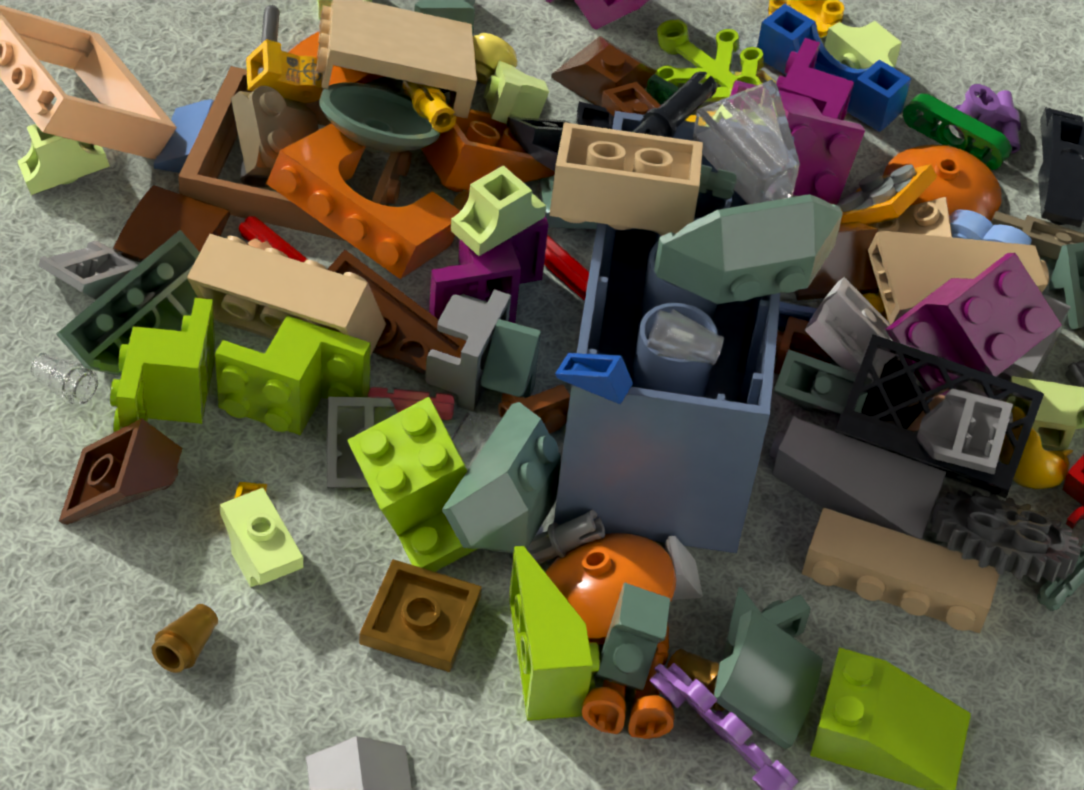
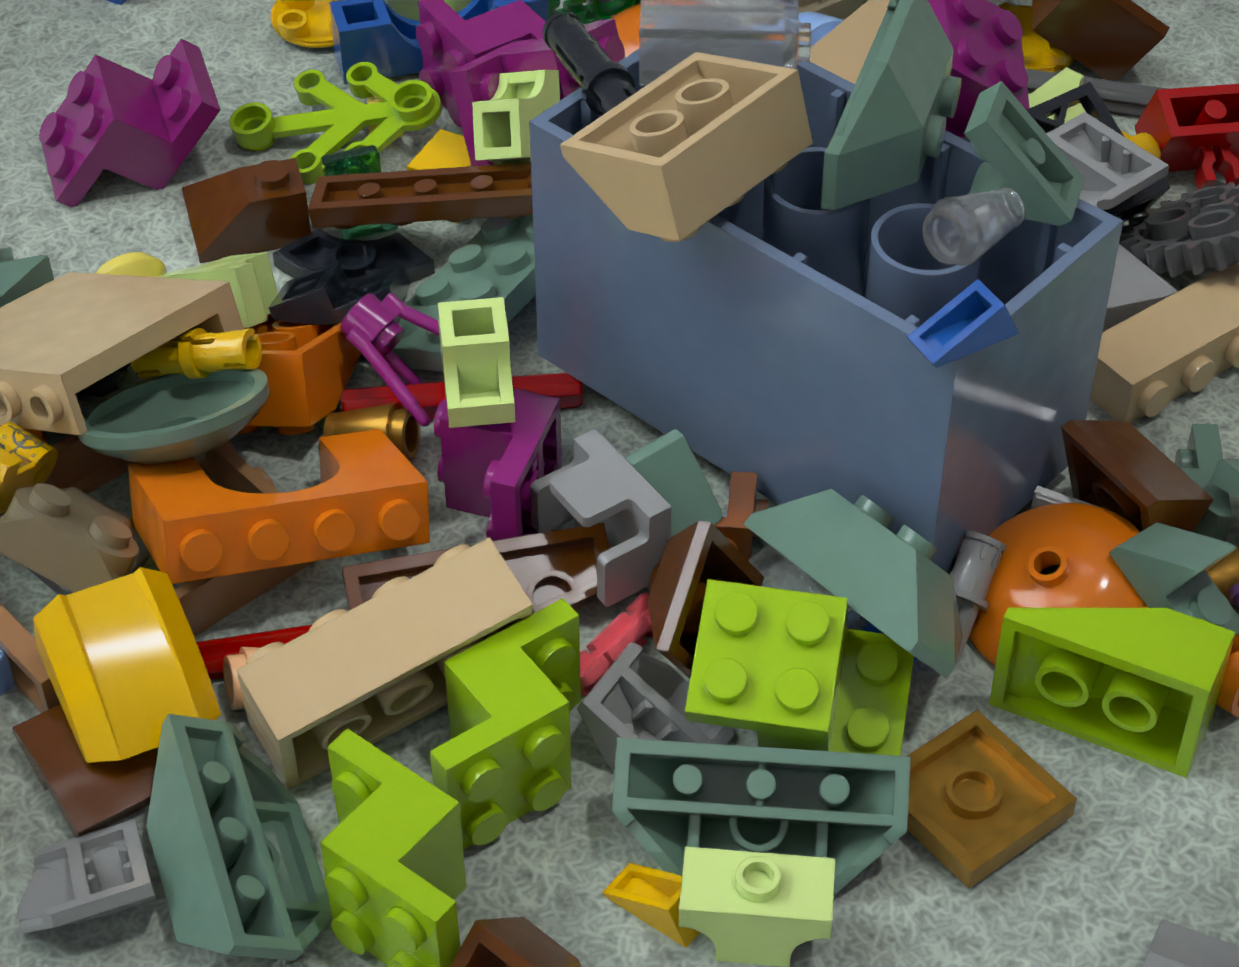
camera: 50 degrees left, 5 degrees down
(209, 195) = (123, 663): none -> yellow slope
(325, 510) = (760, 801): none -> sand green wedge
(457, 403) = (680, 587): none -> reddish brown slope
(531, 167) = (375, 331): none -> magenta plant
(709, 579) = (1130, 476): none -> reddish brown slope
(753, 334) = (1021, 158): none -> sand green slope

